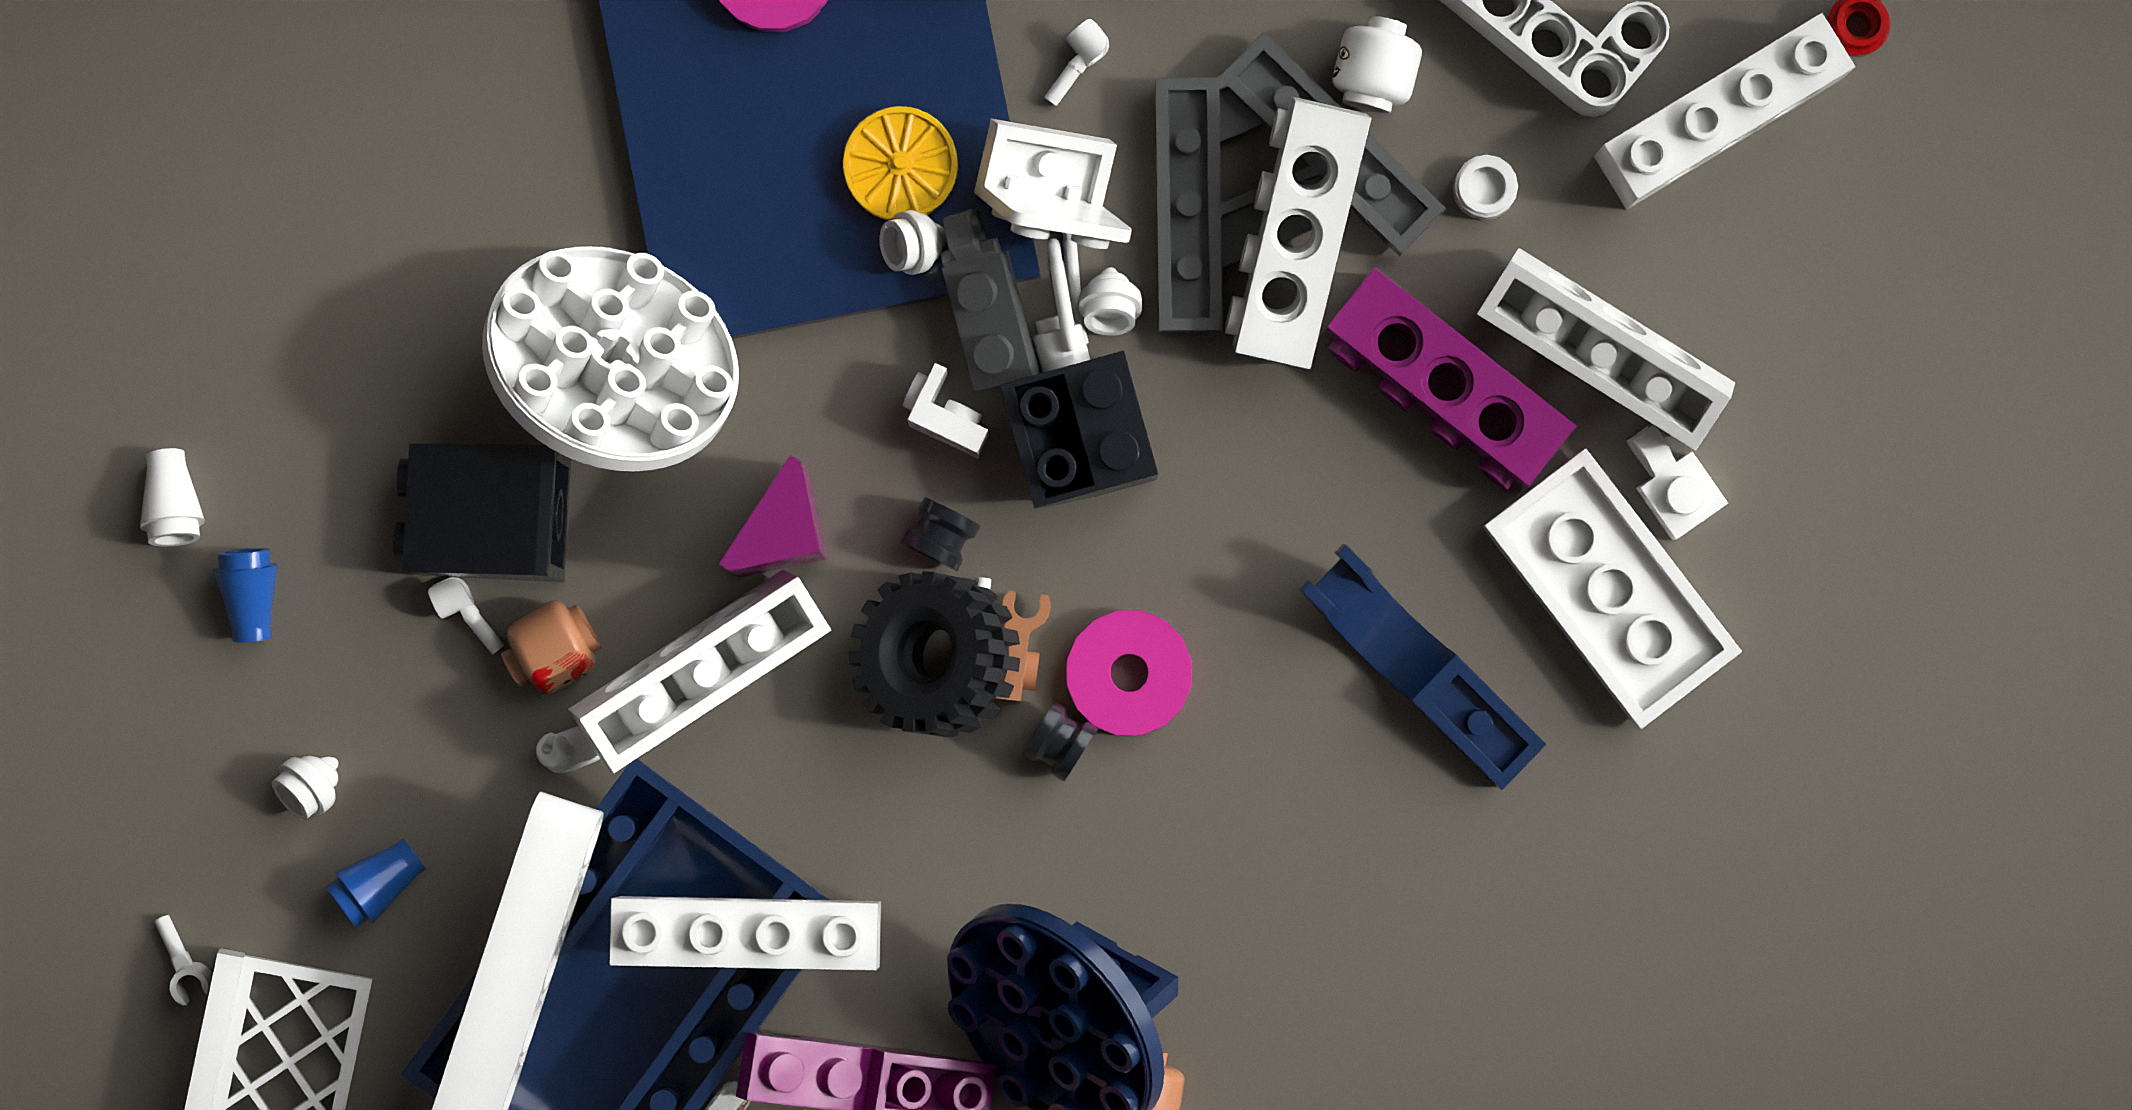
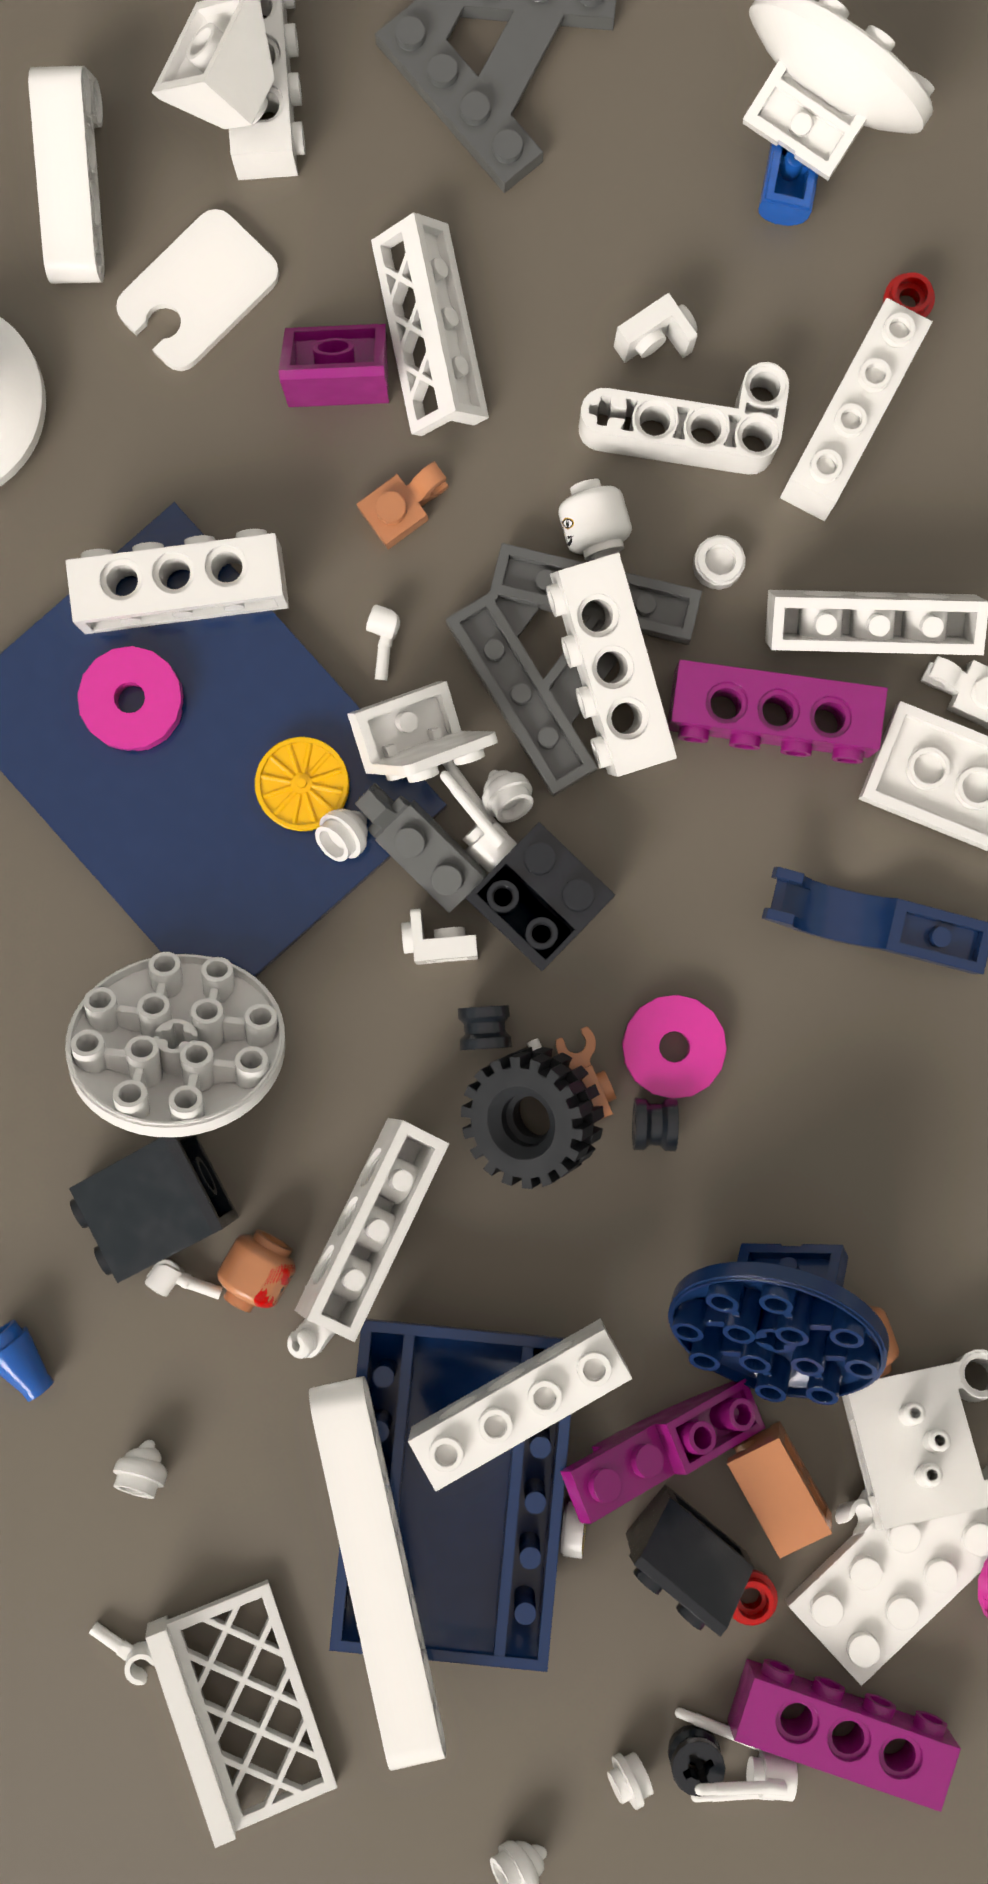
camera: 25 degrees left, 0 degrees up
(374, 882) = (229, 1514): blue cone -> none
(782, 527) = (370, 1090): magenta slope -> none

